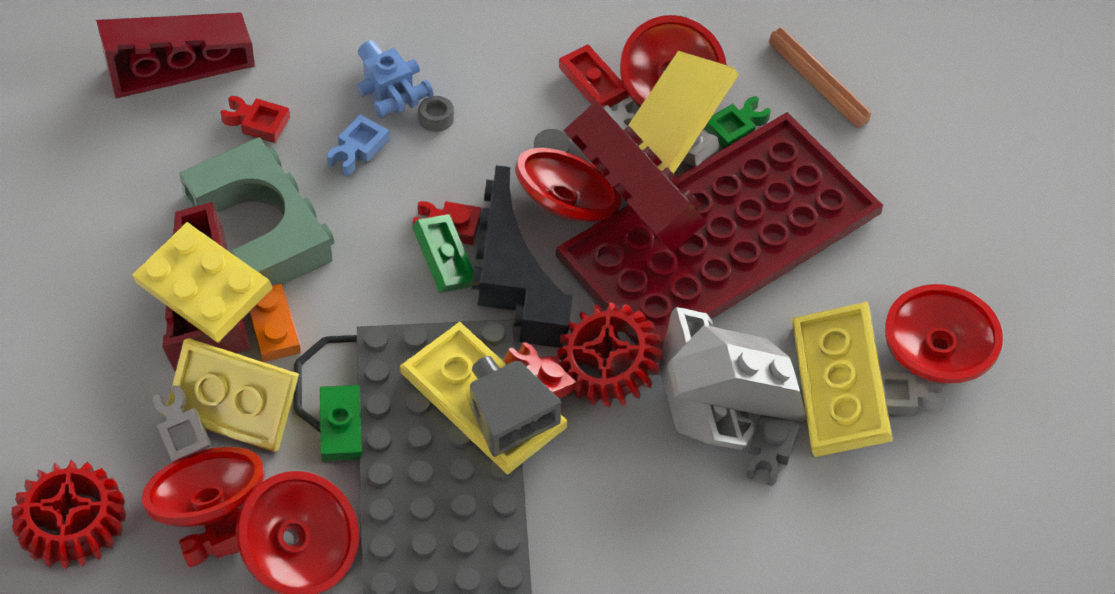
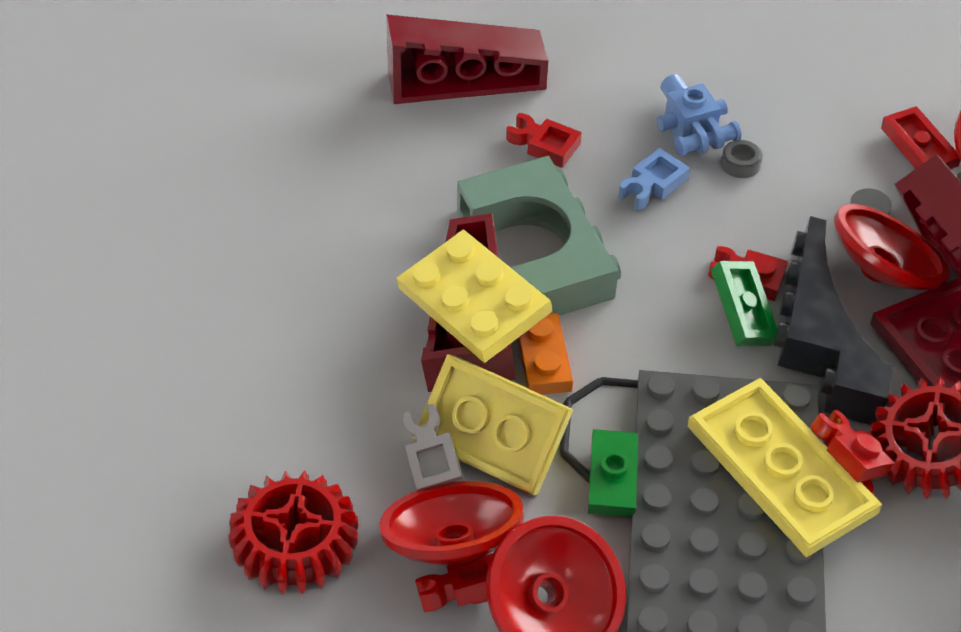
camera: 10 degrees right, 5 degrees down
(511, 404) = (820, 475): dark grey torso -> none

